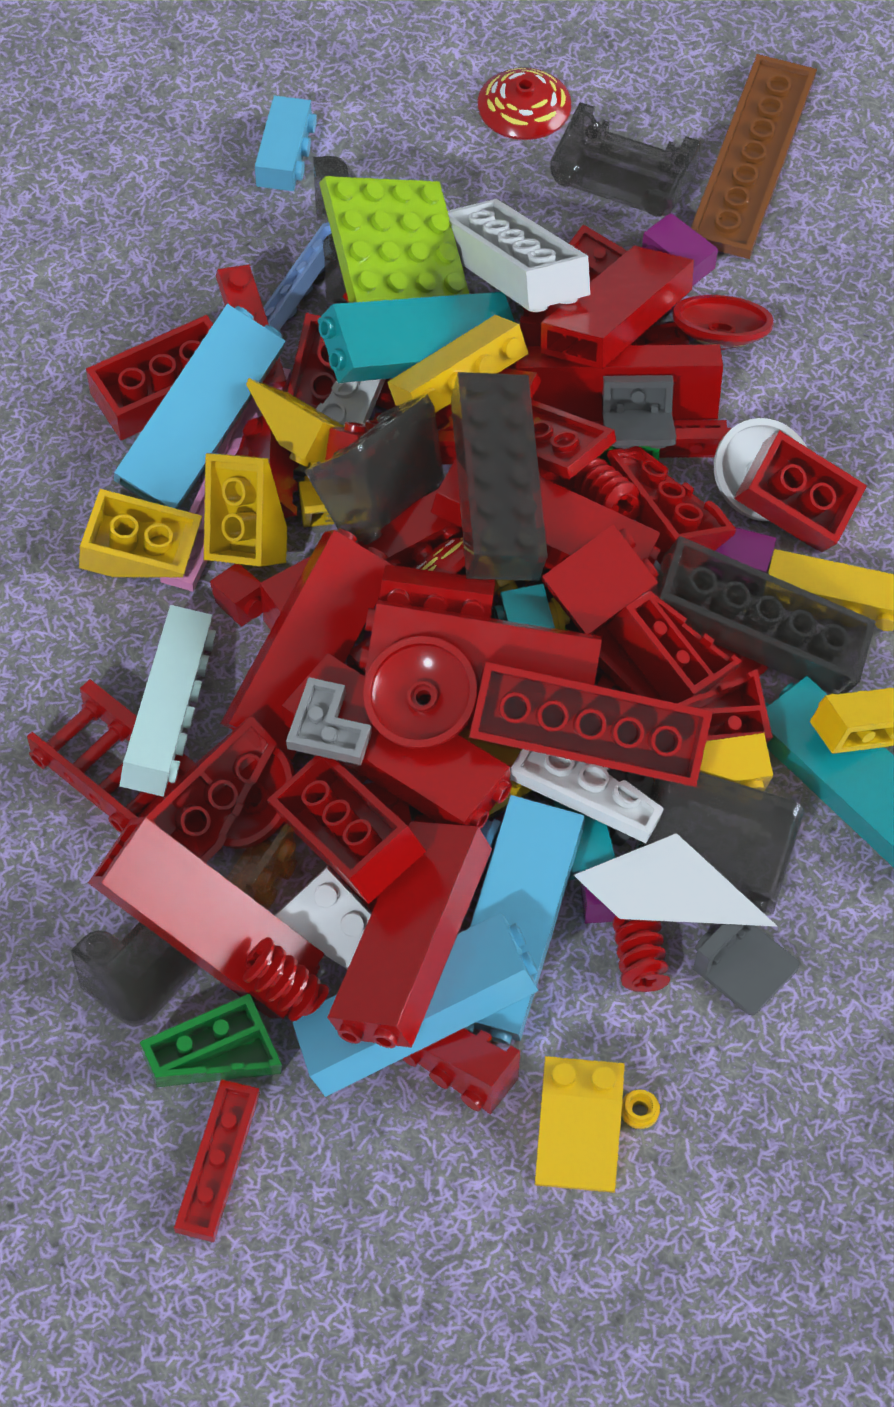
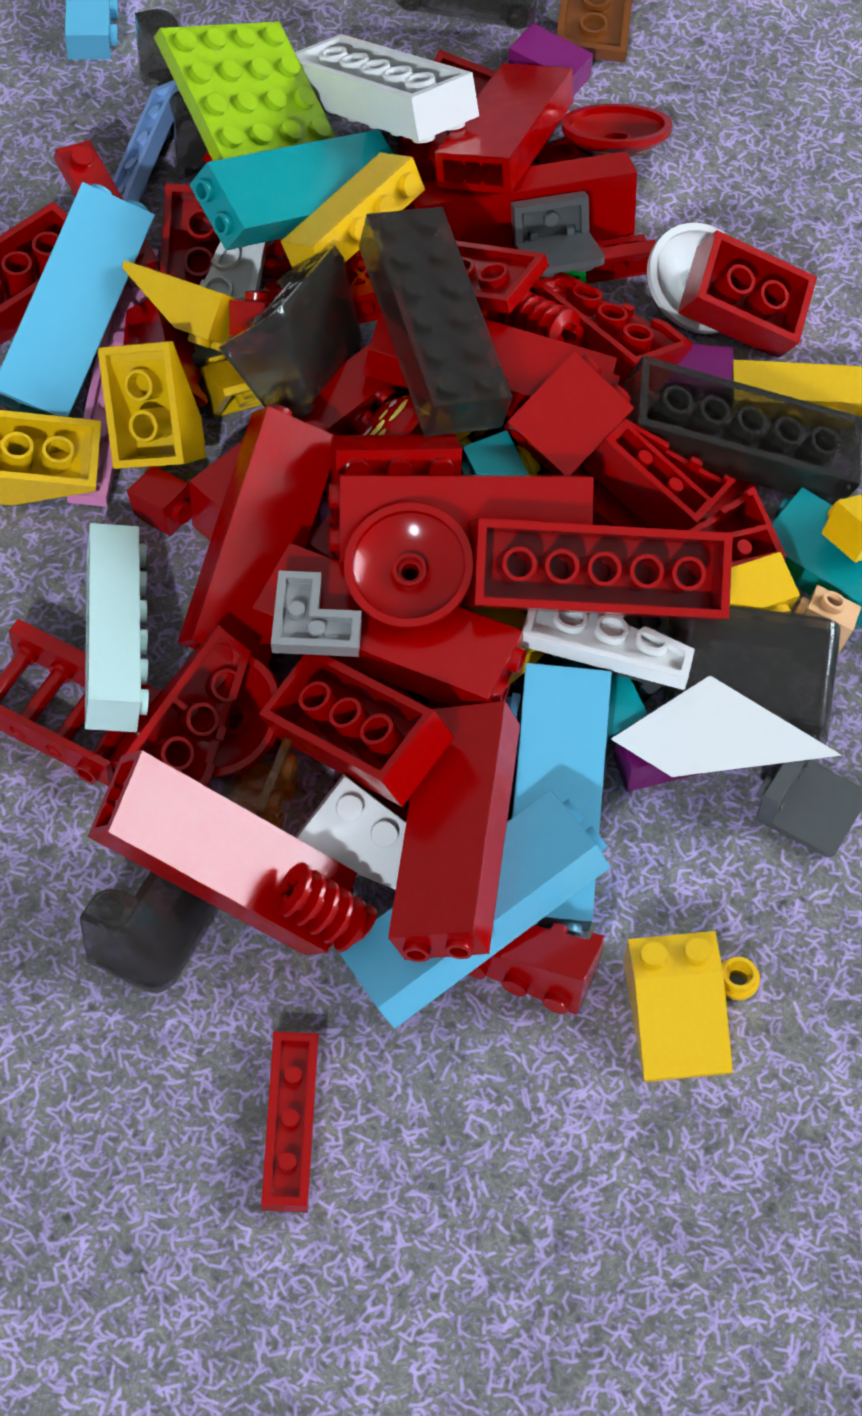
camera: 15 degrees left, 0 degrees up
(213, 1047) = (258, 996): green wedge -> none
(640, 954) = (698, 812): red piece -> none
(805, 792) = (831, 606): none -> light nougat brick

